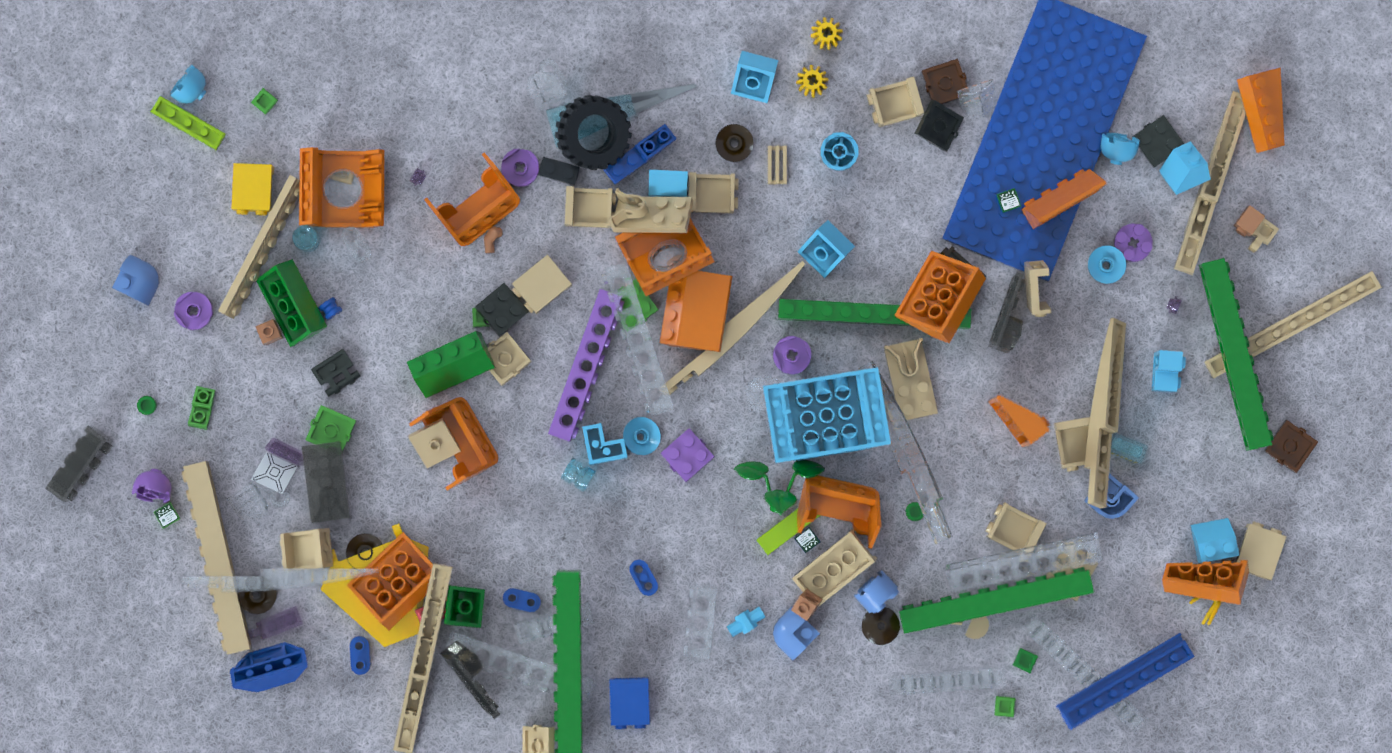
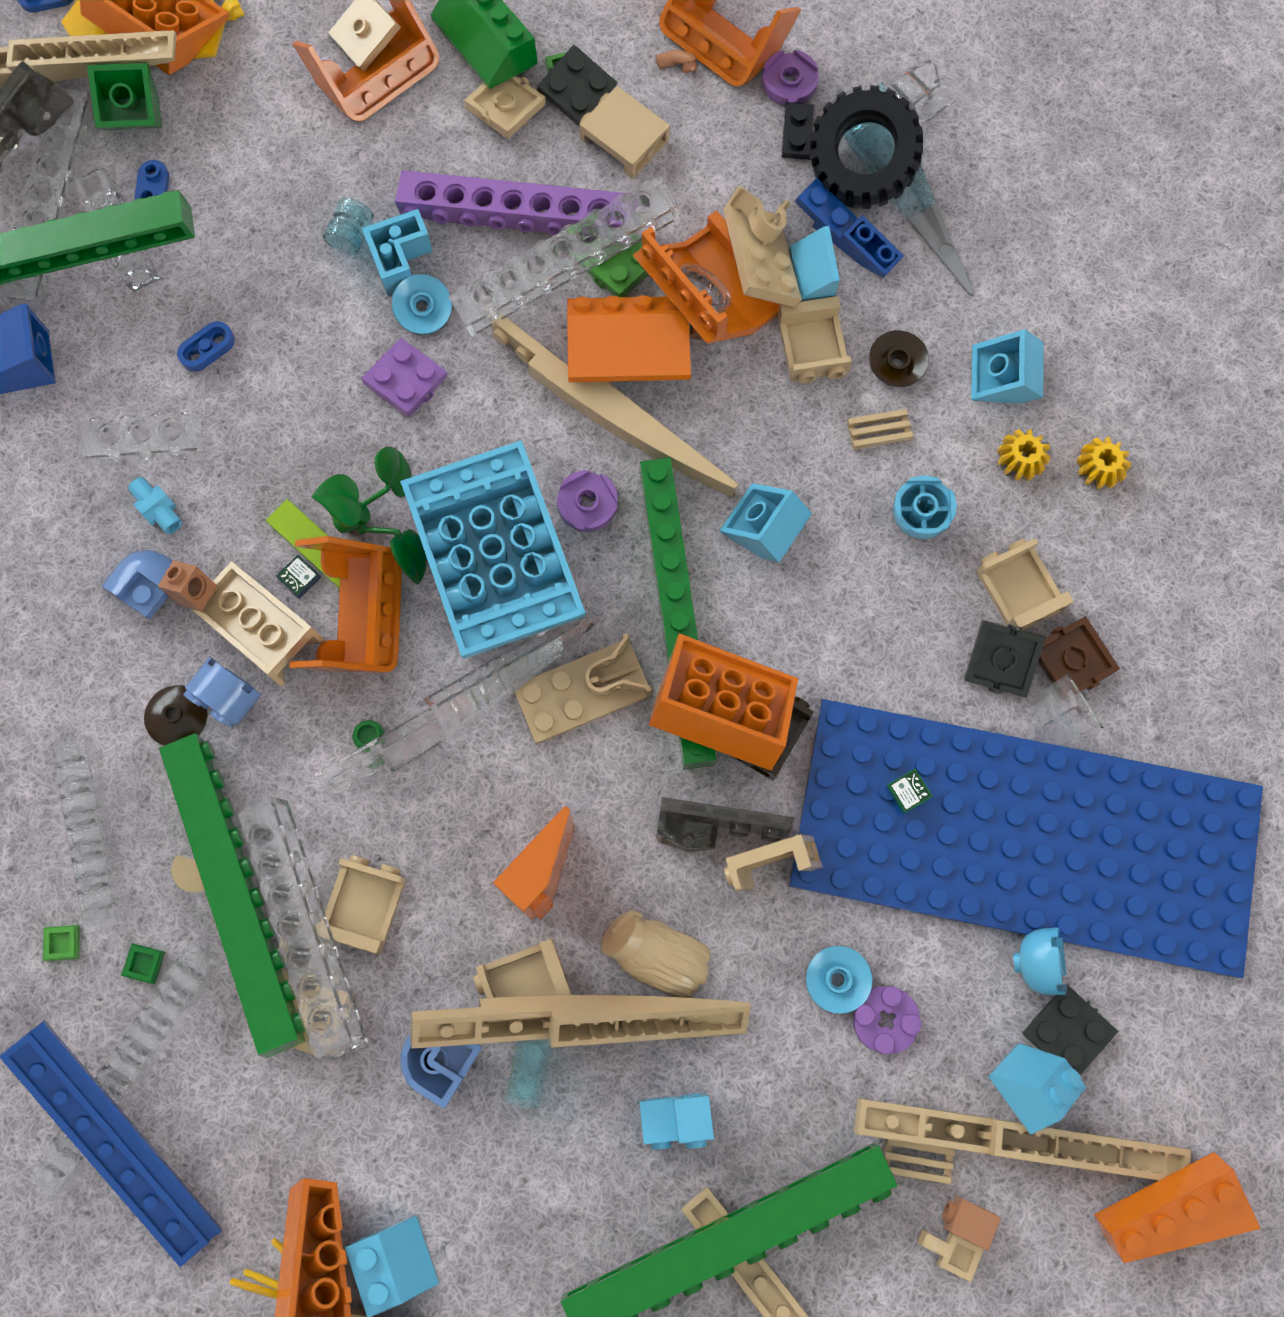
camera: 80 degrees right, 10 degrees down
(589, 207) = (754, 165): tan panel -> none
(1062, 198) = (935, 879): orange slope -> none
(1073, 365) = (657, 954): none -> tan hair
(1173, 305) = (794, 1111): clear purple plate -> none
(1216, 227) = (947, 1165): none -> tan tile

